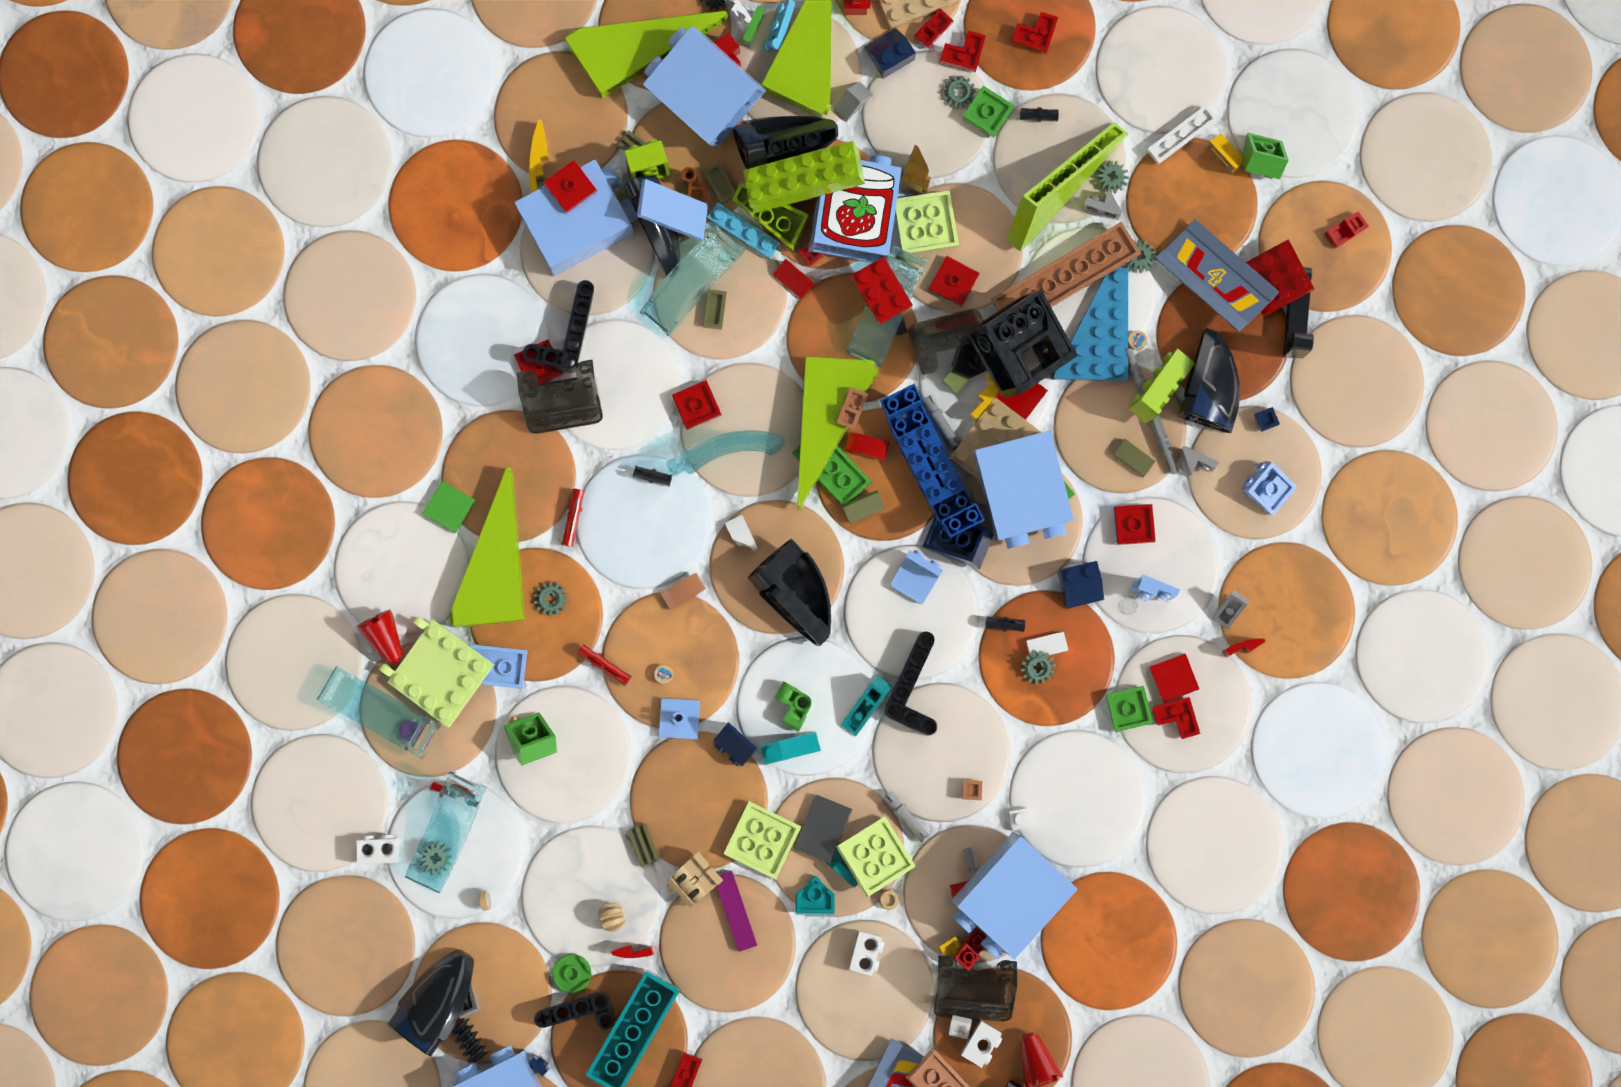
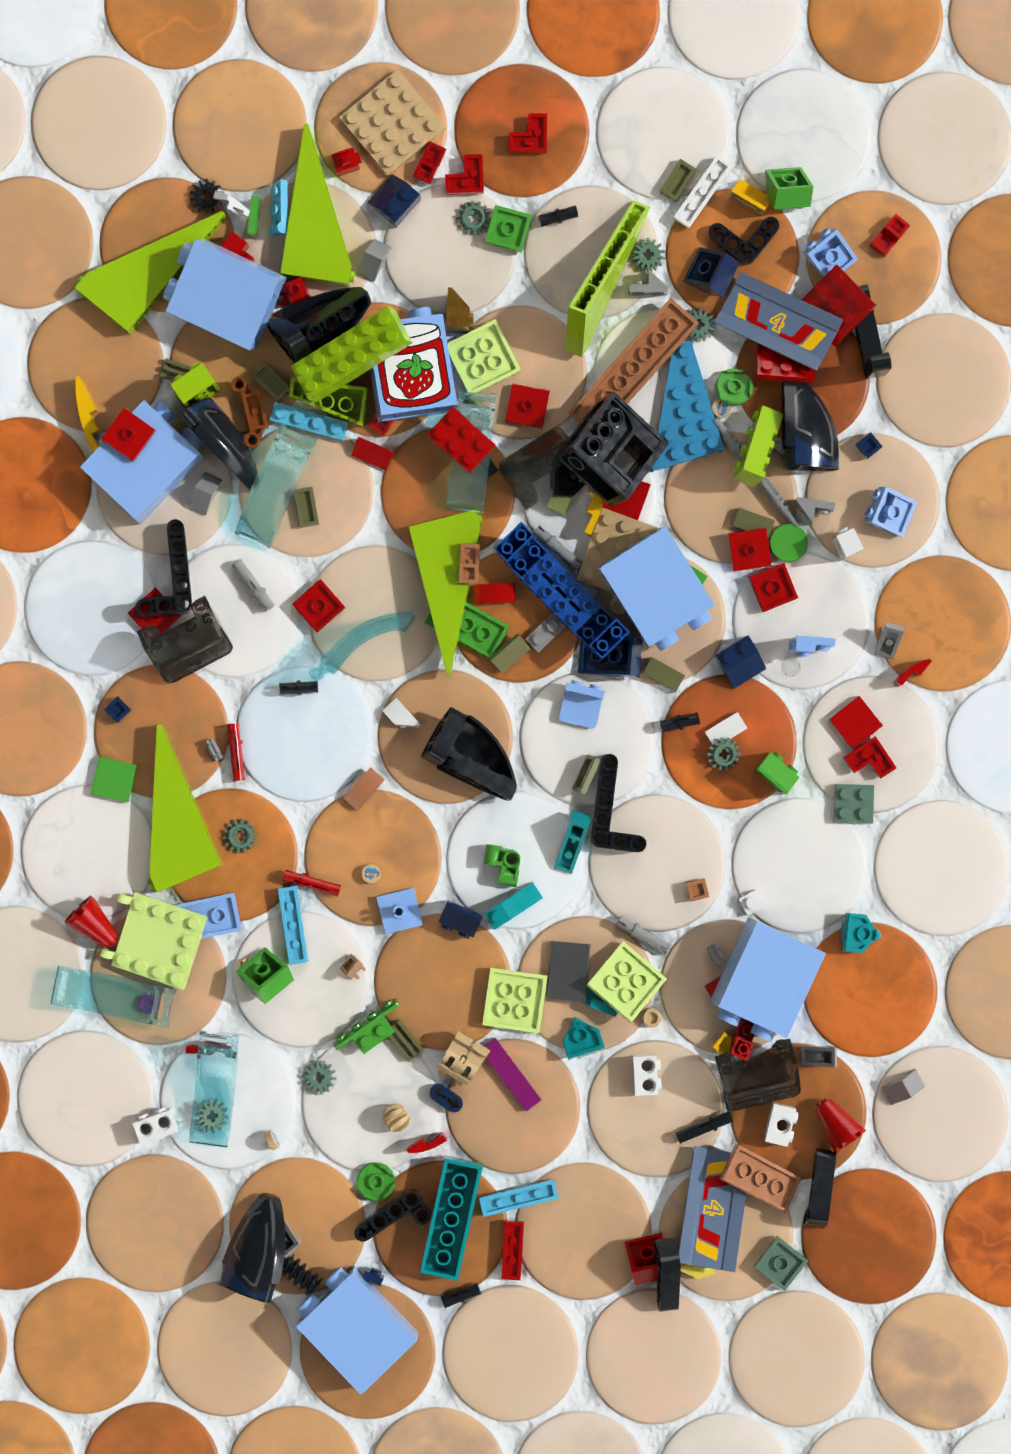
camera: 15 degrees left, 5 degrees up
(474, 442) = (117, 709): none -> dark blue plate
(552, 508) = (213, 749): none -> light grey piece
(554, 860) = (323, 1071): none -> sand green gear
(573, 699) = (293, 925): none -> medium azure plate
(615, 825) = (371, 1031): none -> bright green bracket
(616, 757) = (352, 966): none -> medium nougat tile
(623, 266) = (204, 493): none -> light grey slope
(641, 367) = (253, 585): none -> light grey pin
(669, 910) = (443, 1101): none -> dark blue beam
(672, 210) = (234, 426): light blue tile -> none
(704, 1034) = (518, 1197): none -> medium azure plate
(770, 106) = (295, 292): none -> red brick
(900, 644) = (586, 774): none -> olive tile
(903, 498) = (545, 632): none -> light grey plate
(906, 1023) = (712, 1123): none -> black pin
(960, 1027) = (755, 1115): white plate -> none
(1003, 573) = (663, 674): none -> olive tile
(1039, 989) = (819, 1056): none -> light grey slope
(1083, 701) = (777, 773): none -> bright green slope
(1112, 1047) = (903, 1087): none -> light grey slope
(1114, 881) = (857, 933): none -> teal plate
(1123, 481) = (749, 549): none -> red plate
(1129, 709) = (822, 765): bright green plate -> none
(1148, 755) = (853, 803): none -> sand green plate
(1155, 324) = (733, 387): none -> bright green tile
(1161, 117) = (677, 180): none -> olive tile
(1162, 487) = (788, 543): none -> bright green tile
(1167, 210) = (711, 271): none -> dark blue slope
(1203, 318) = (777, 367): none -> red plate
(1208, 198) = (748, 246): none -> black beam
(1218, 504) = (847, 543): none -> white brick
(1284, 226) = (829, 251): none -> light blue plate

